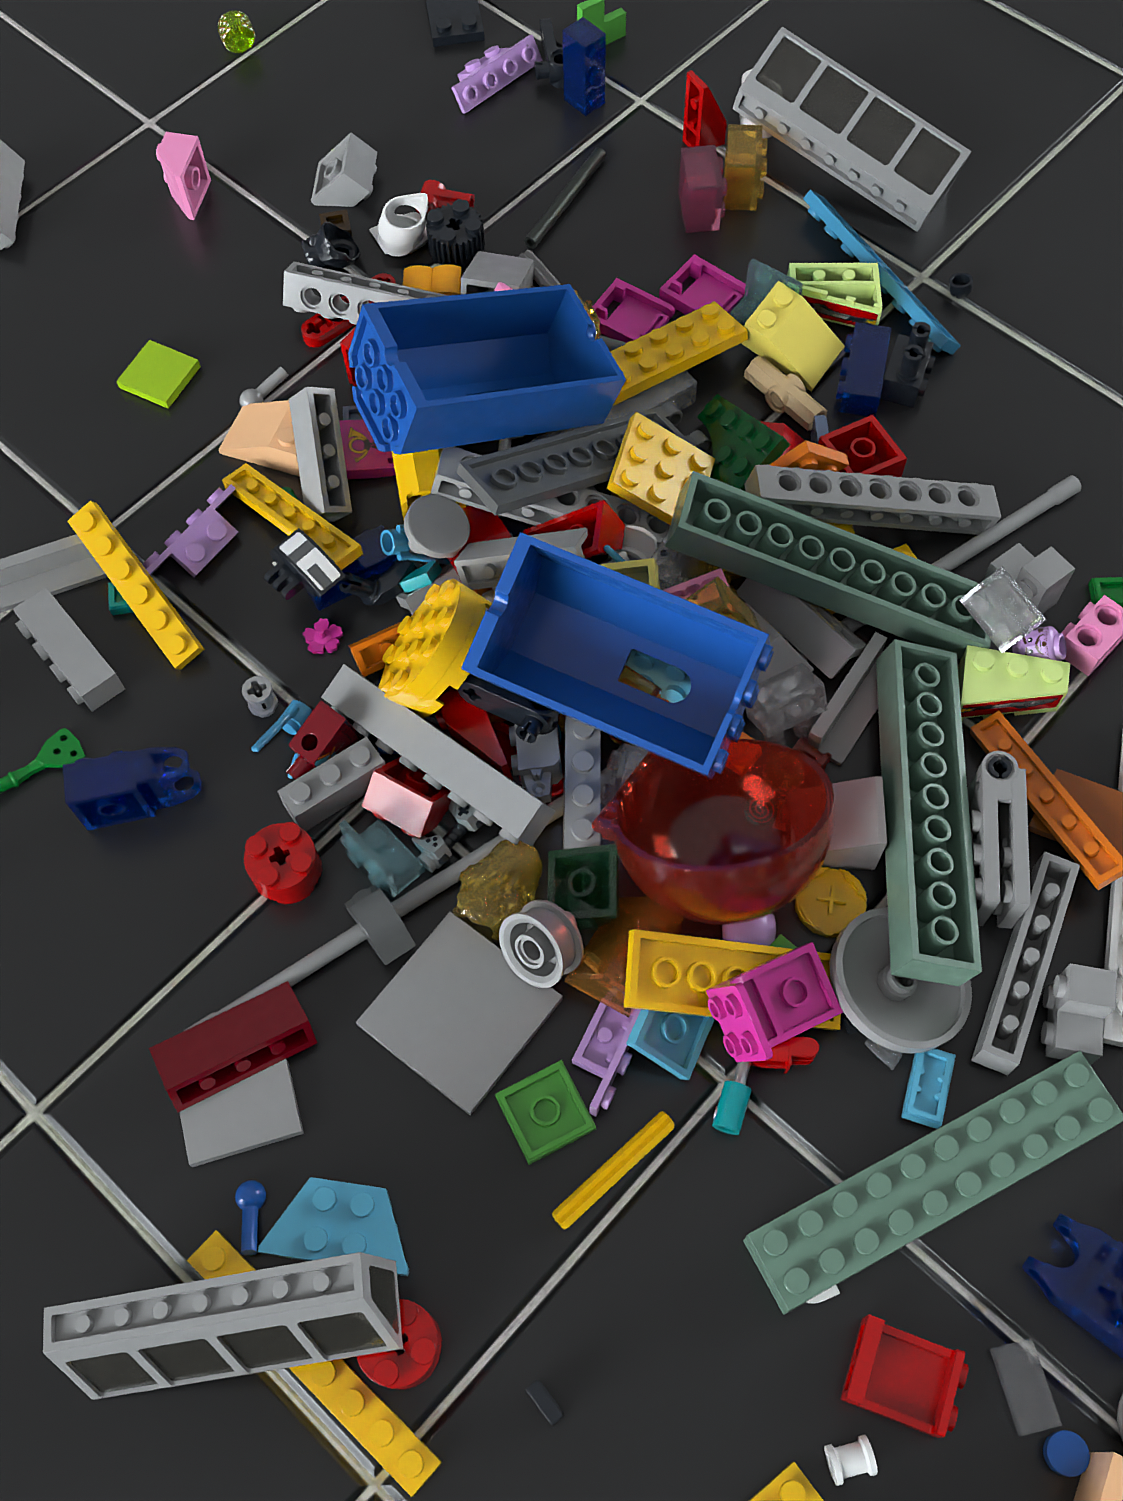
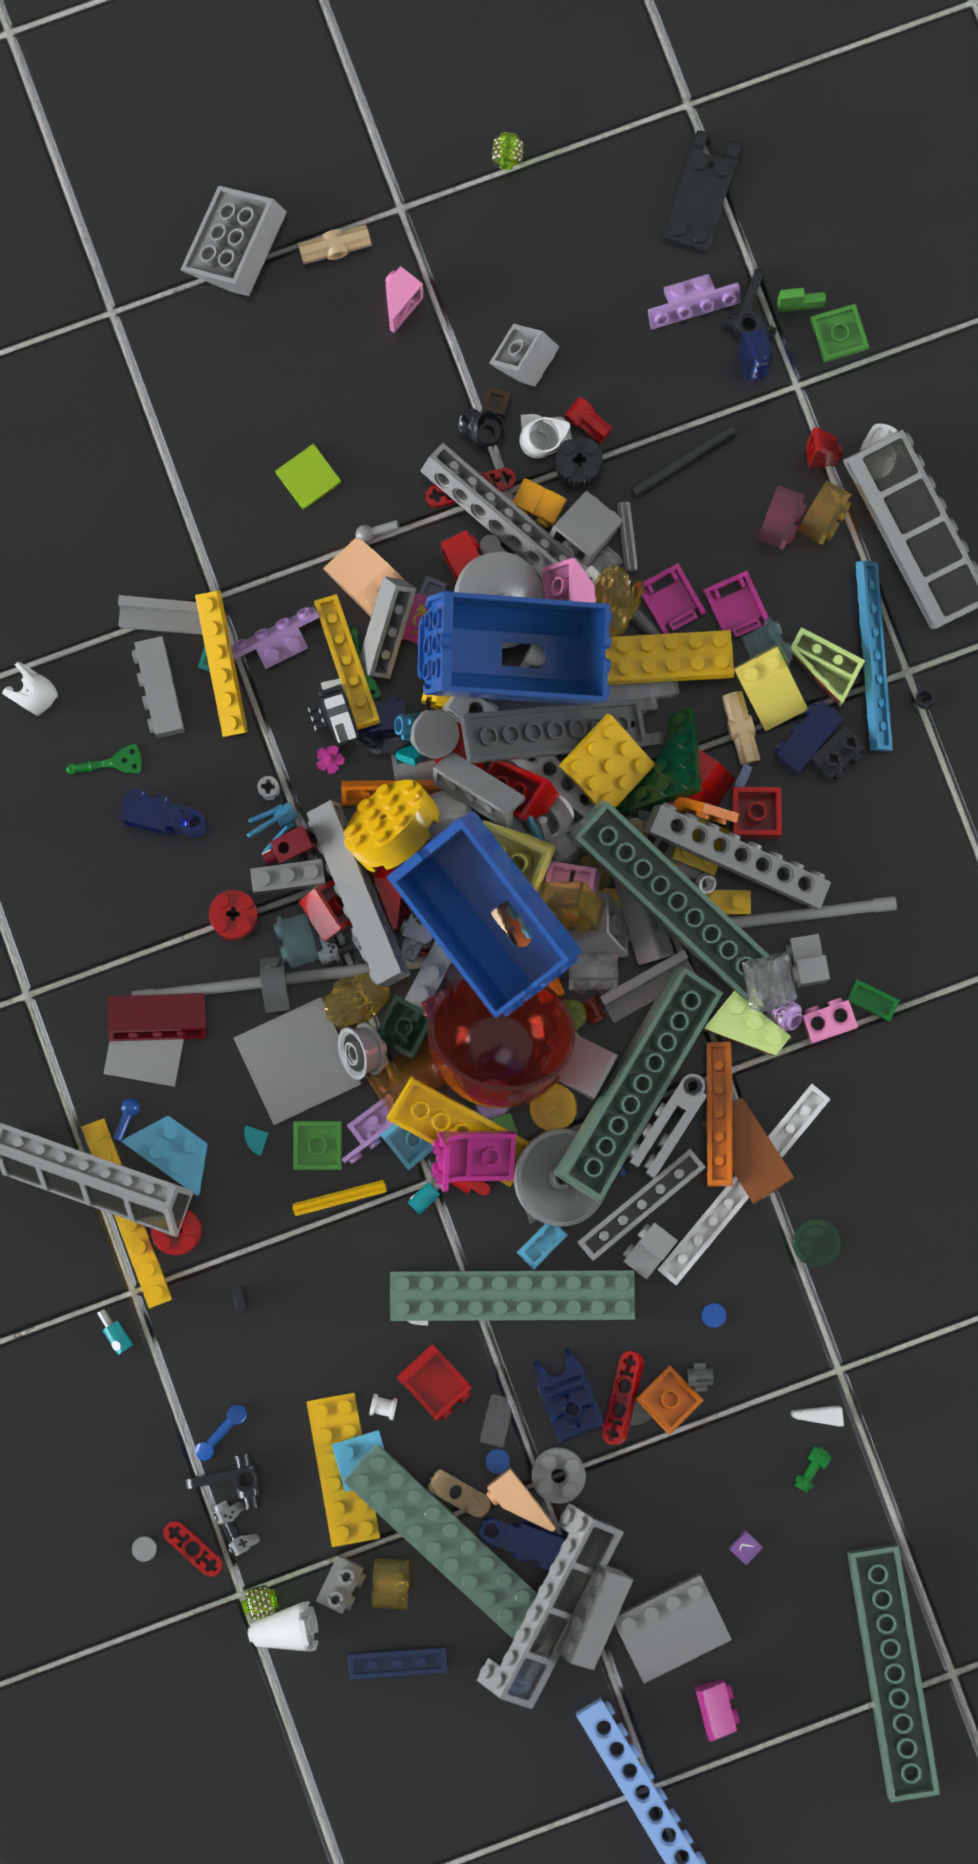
camera: 25 degrees right, 20 degrees up
(90, 168) = (334, 244): none -> tan piece
(453, 1147) = (255, 1139): none -> teal tile
(654, 44) = (839, 333): none -> bright green tile

